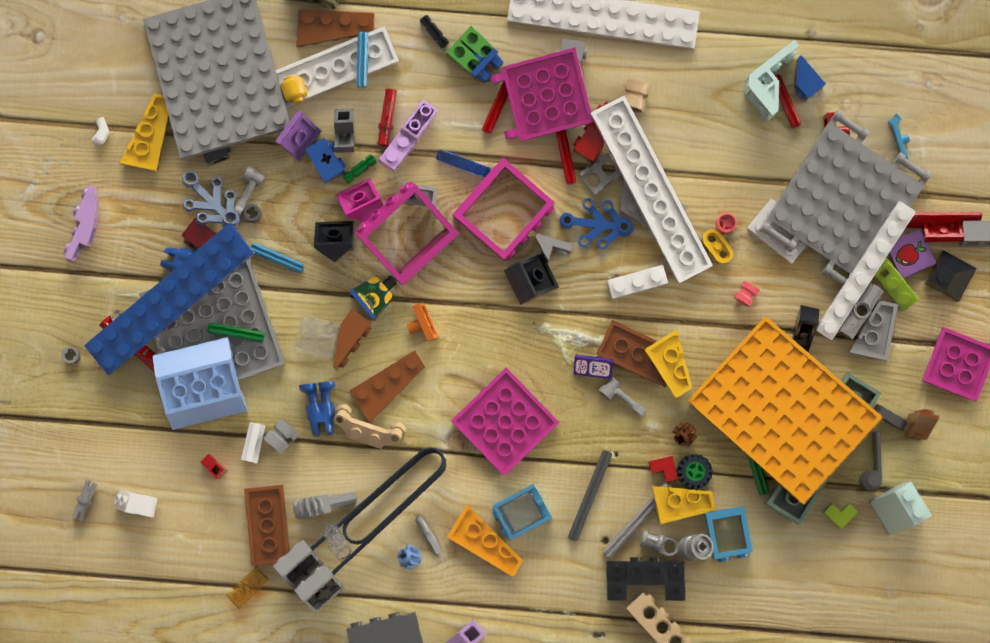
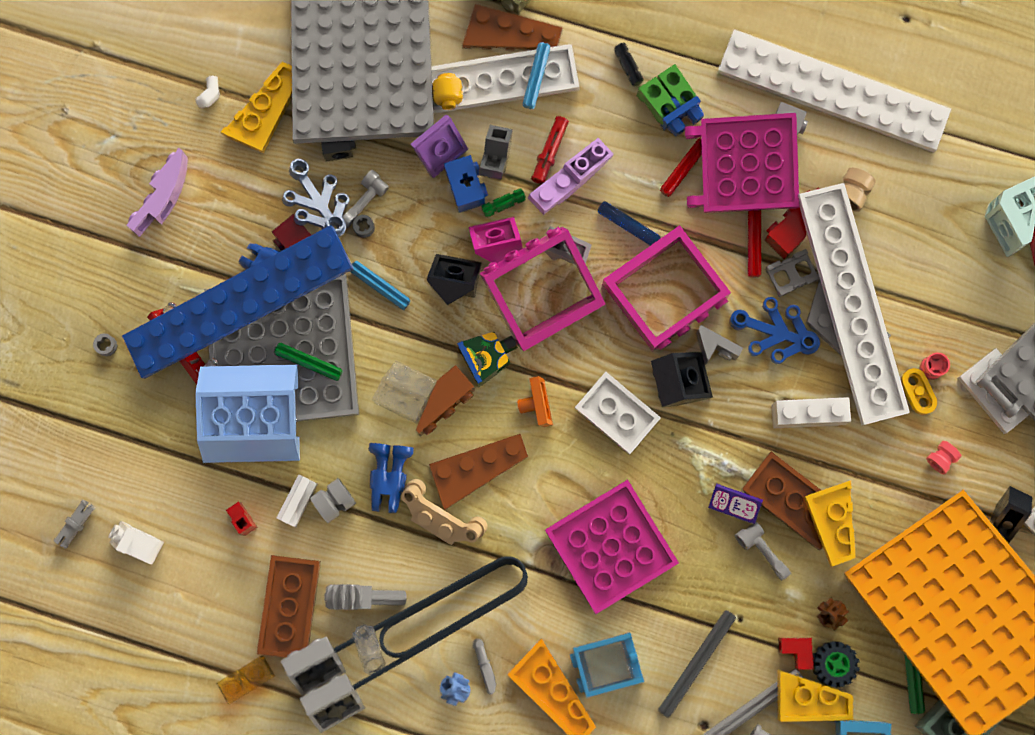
camera: 15 degrees right, 5 degrees down
(487, 317) = (617, 413): none -> white plate

